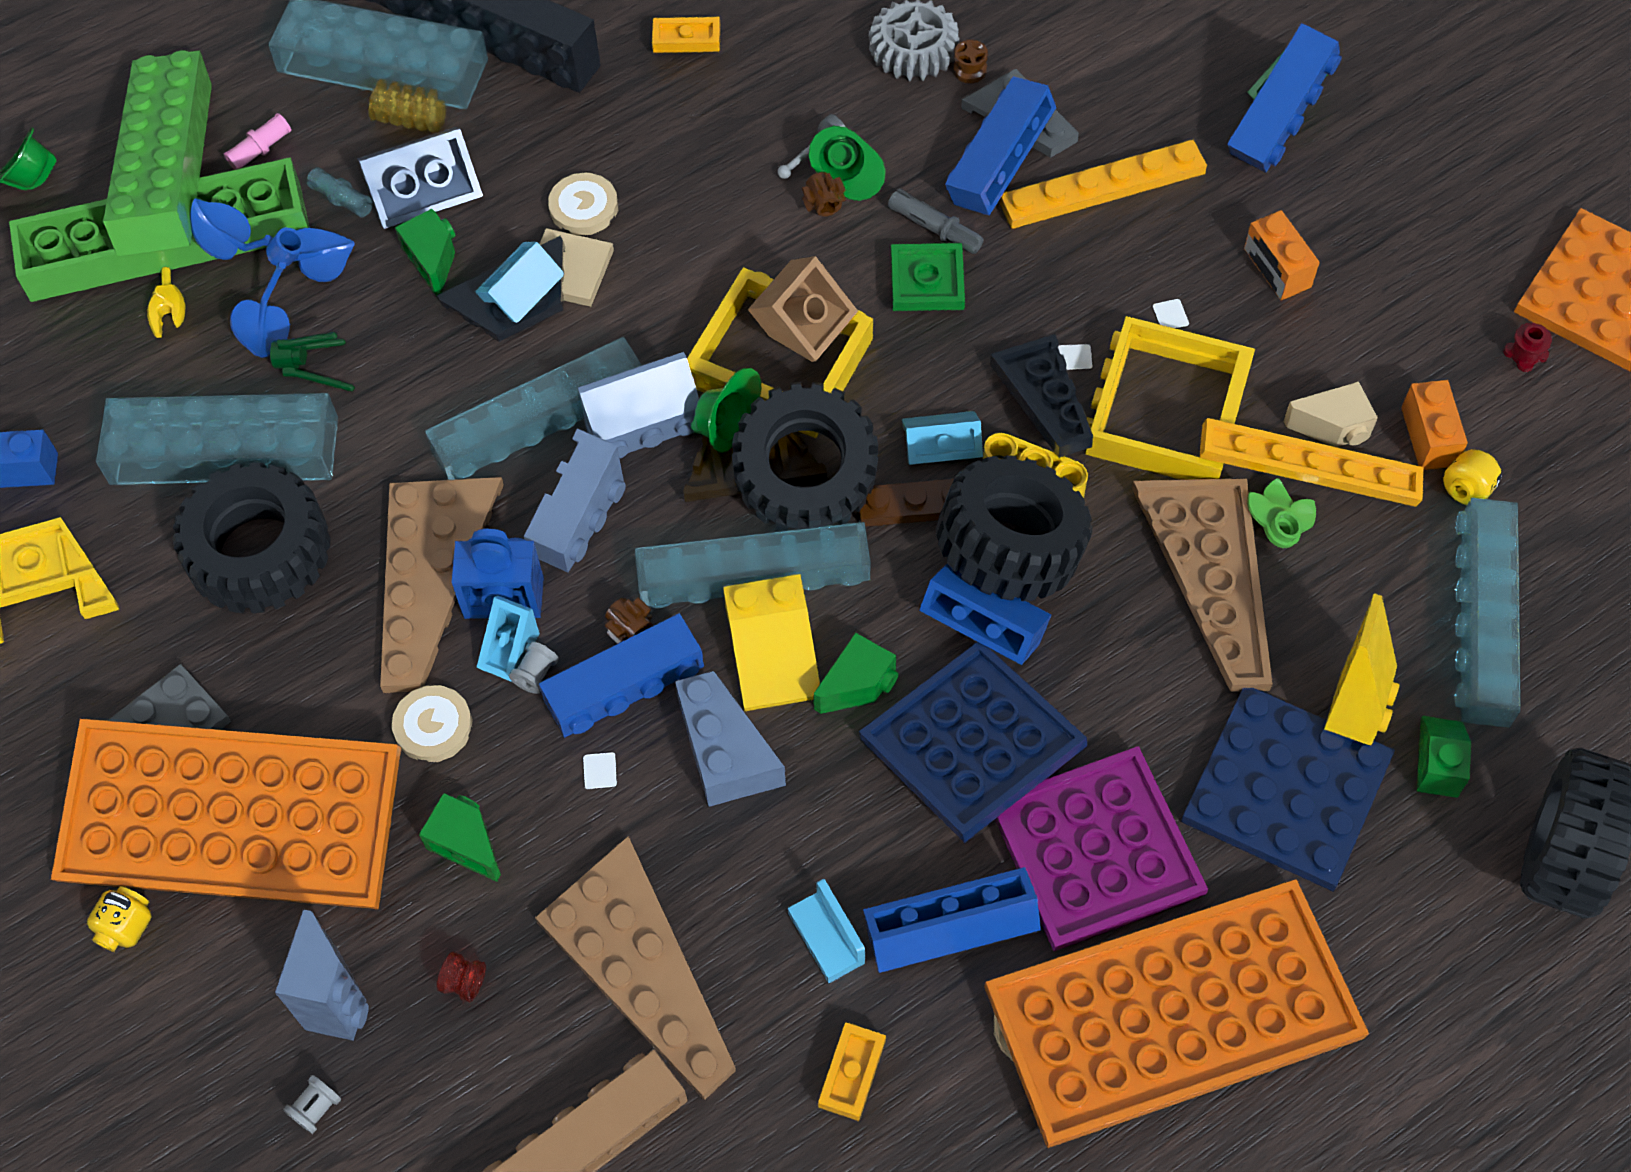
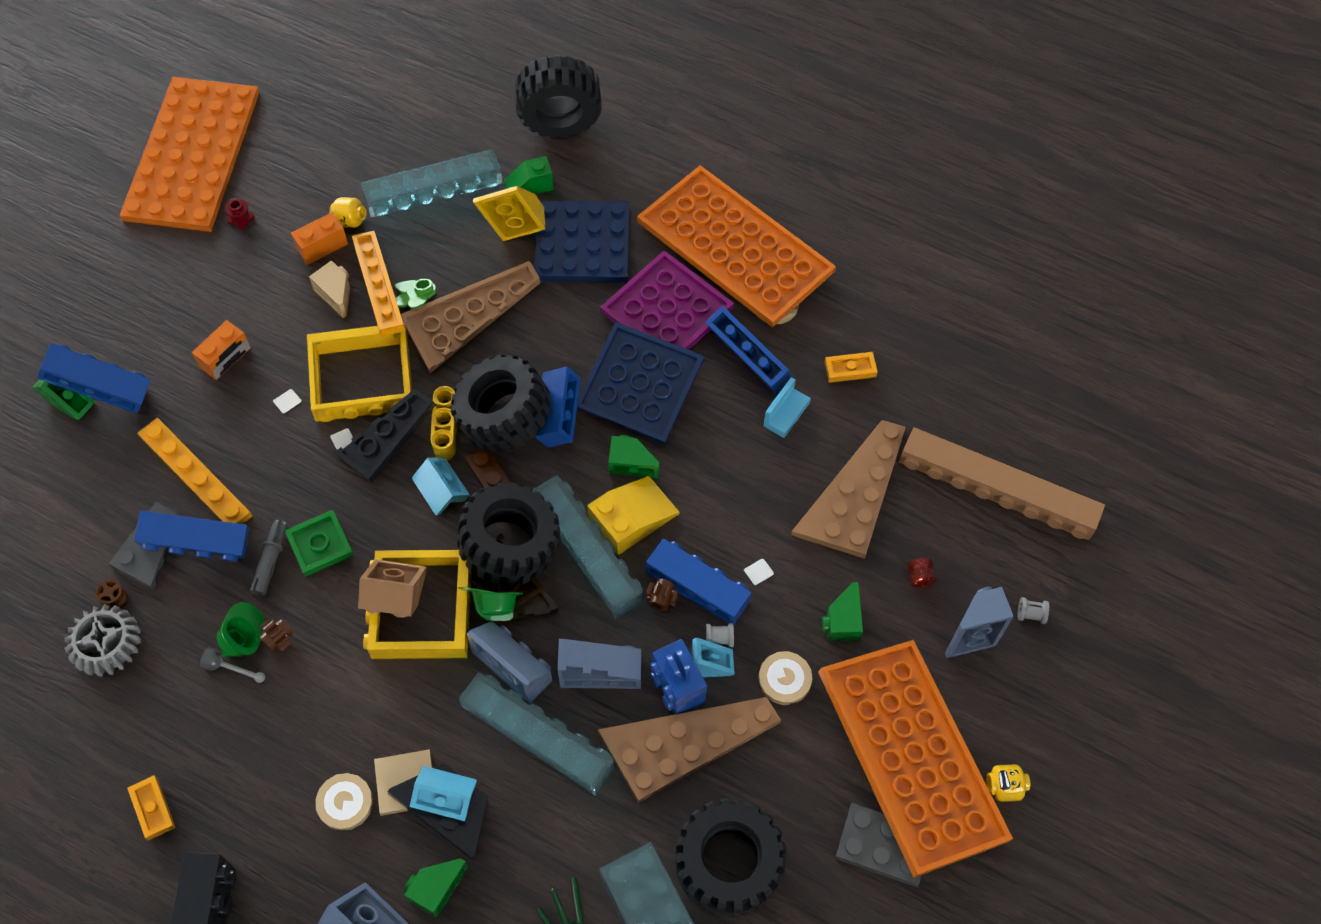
camera: 120 degrees left, 0 degrees up
(725, 743) = (710, 506): sand blue wedge -> none

